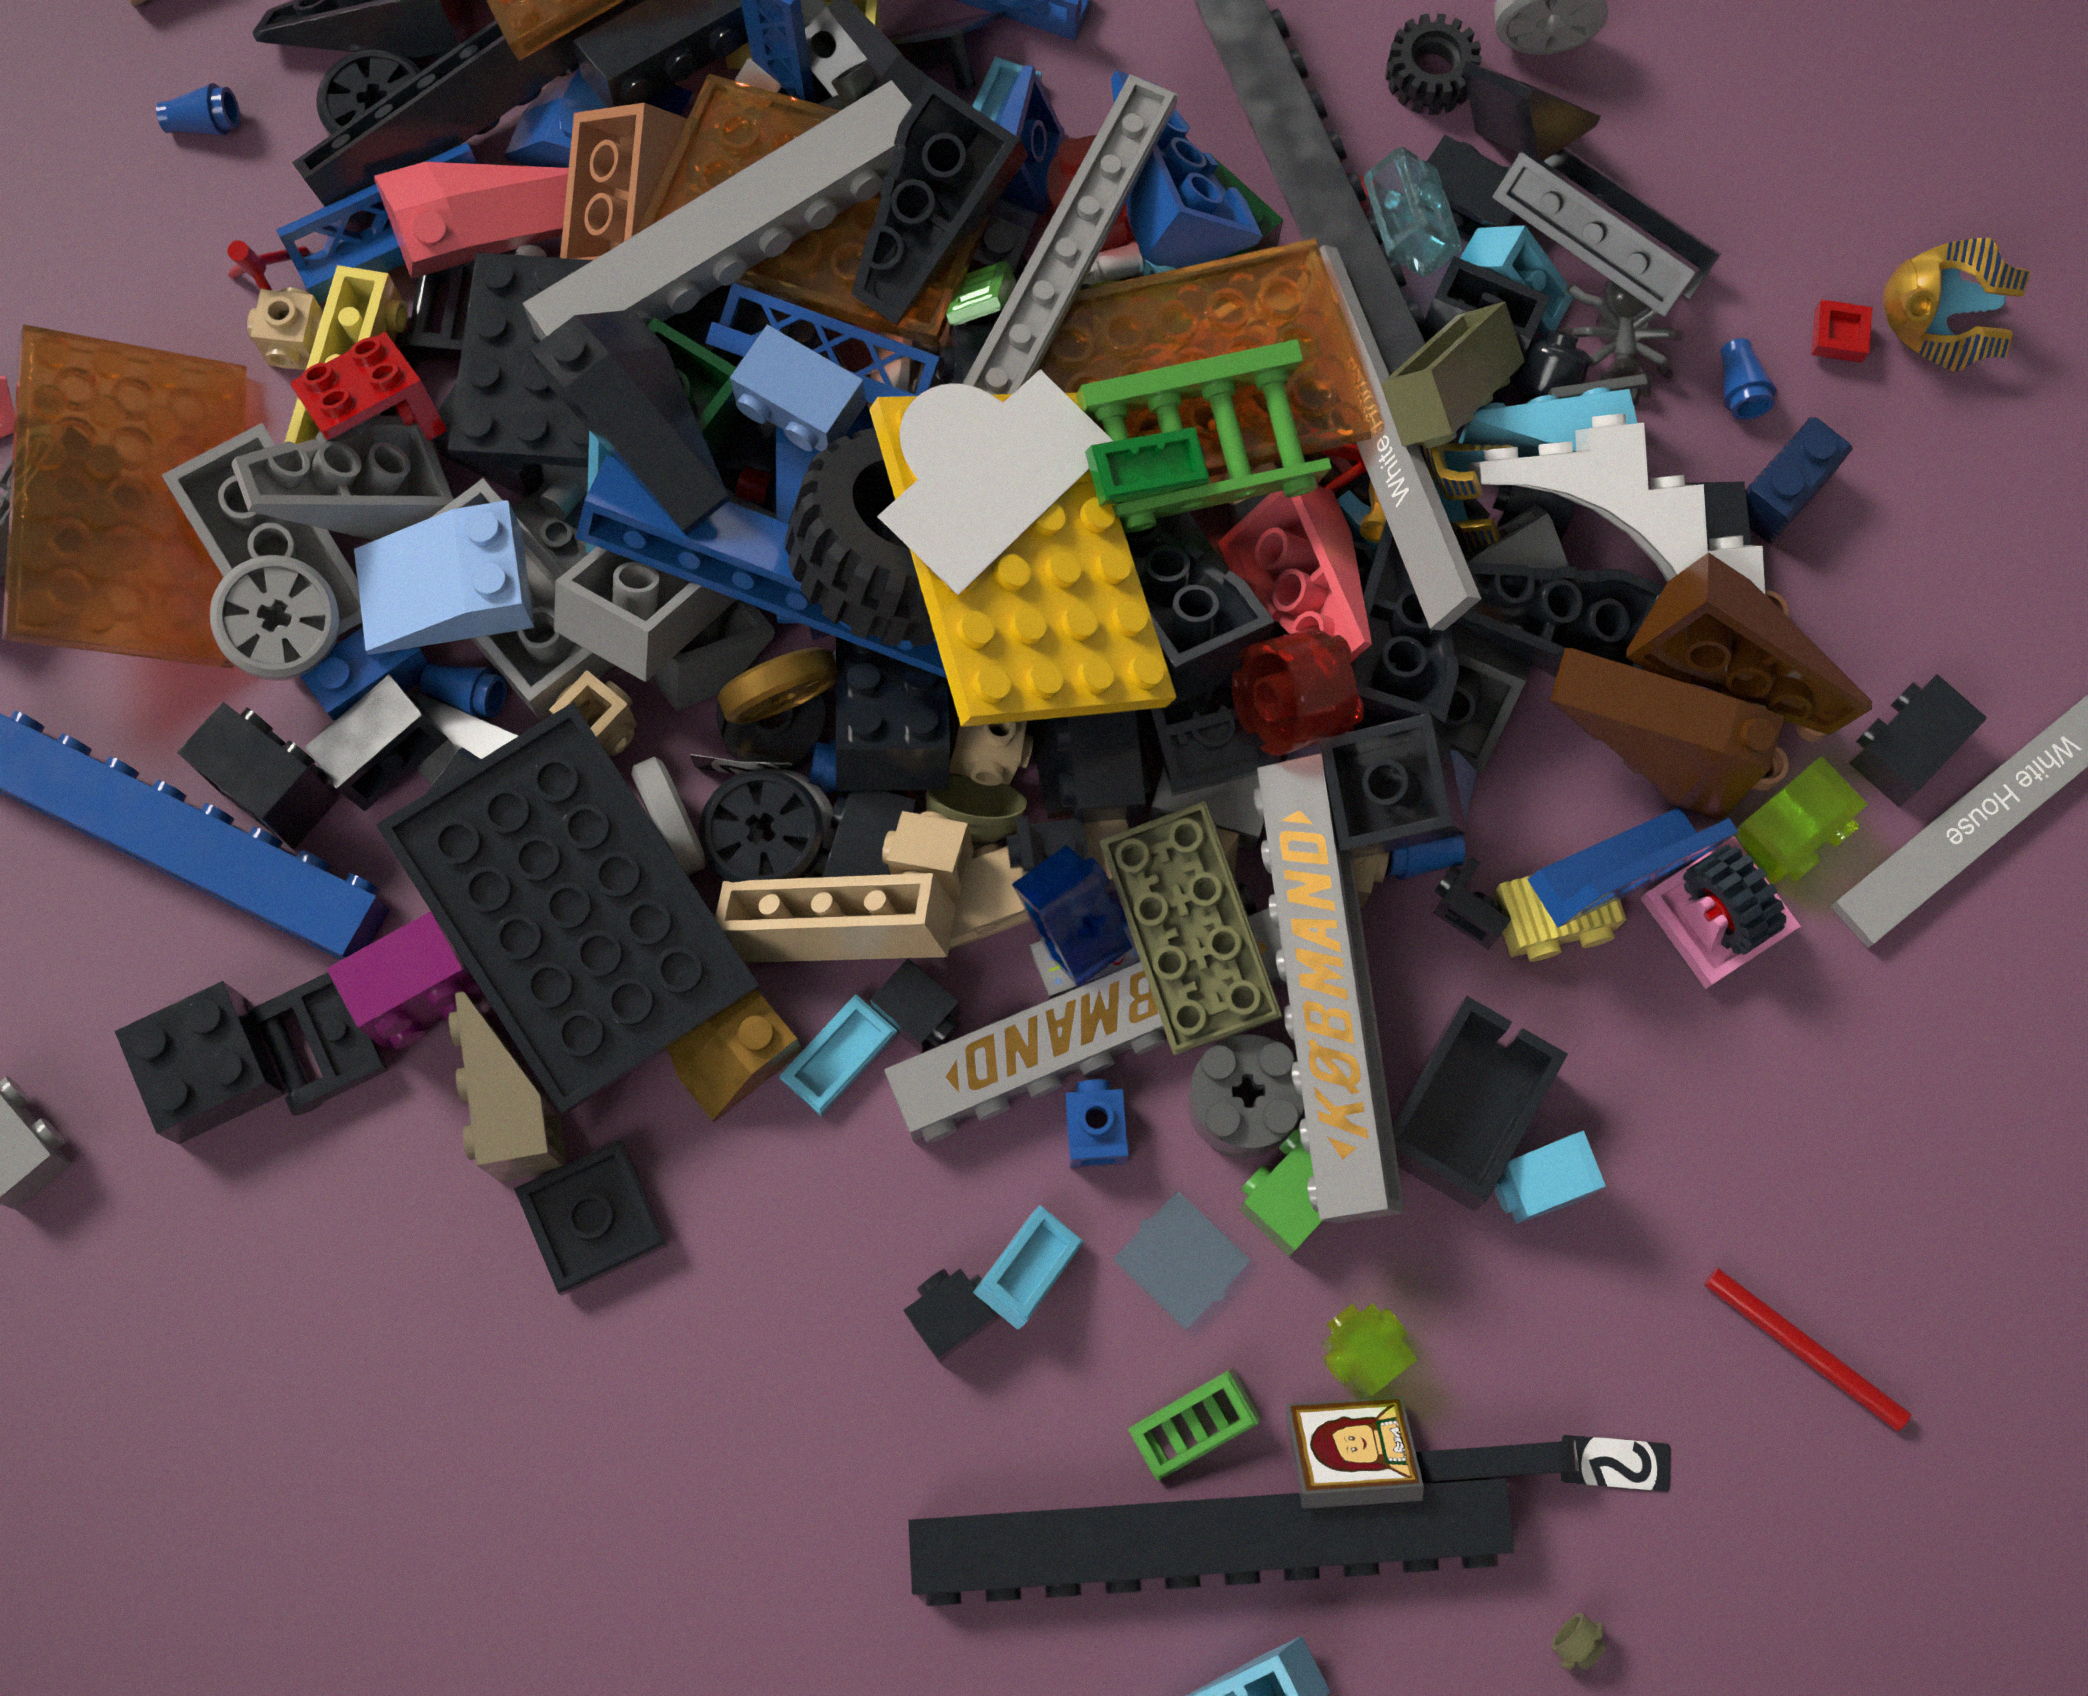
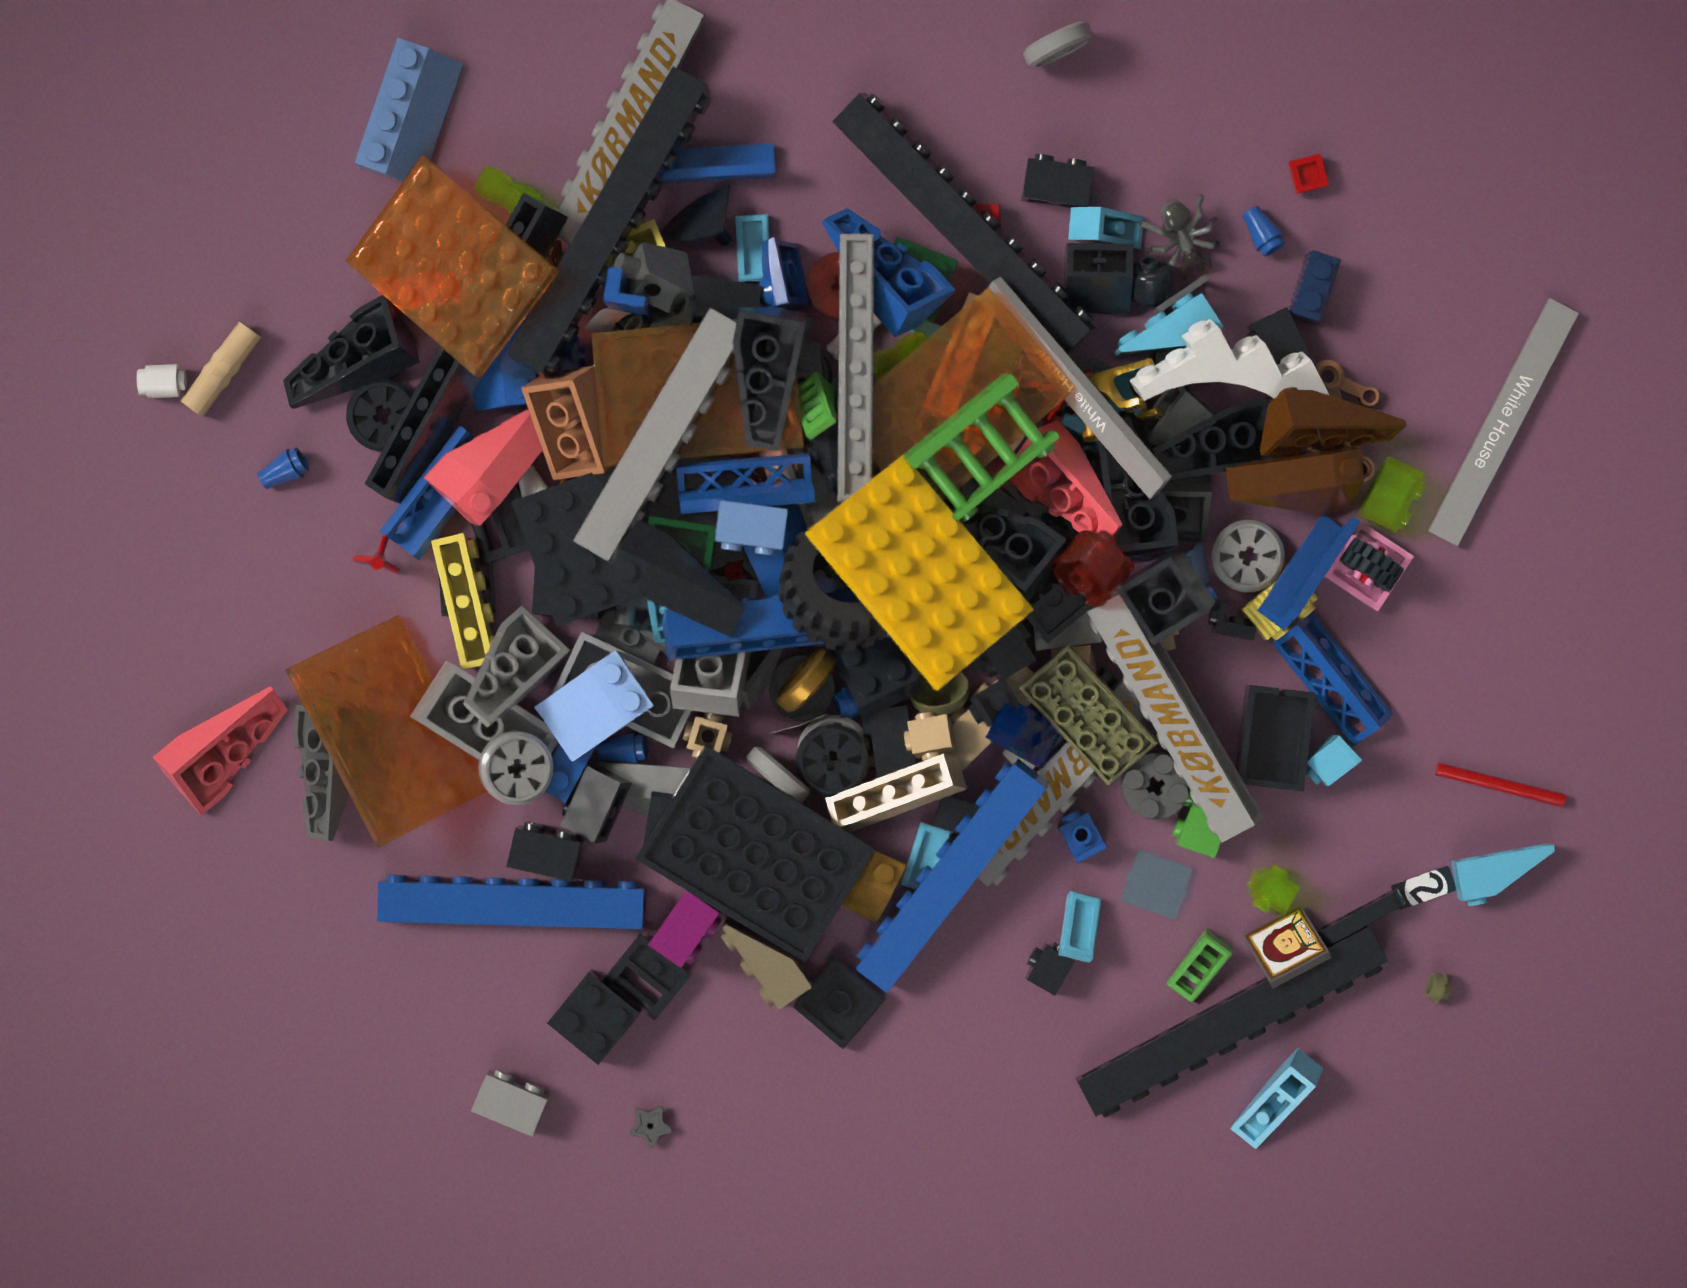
camera: 20 degrees left, 15 degrees up
(212, 1281) = (654, 1117): none -> dark grey plate
(285, 326) = (428, 583): tan brick -> none
(363, 385) = (492, 615): red bracket -> none
(860, 1082) = (952, 875): none -> blue brick
(985, 471) = (883, 538): white sticker -> none
(1147, 466) = (962, 487): green plate -> none
(1412, 212) = (1032, 228): clear light blue brick -> none
(1434, 39) = (1013, 87): black tyre -> none
(1453, 376) = (1101, 335): olive brick -> none
(1523, 114) = (1071, 116): black slope -> none
(1529, 787) = (1236, 539): none -> light grey wheel
(1607, 227) = (1141, 197): fence -> none
(1614, 1052) = (1323, 651): none -> blue fence
(1736, 1485) = (1491, 873): none -> medium azure slope
(1917, 740) = (1439, 415): black brick -> none
(1930, 290) = (1347, 137): pearl gold piece -> none

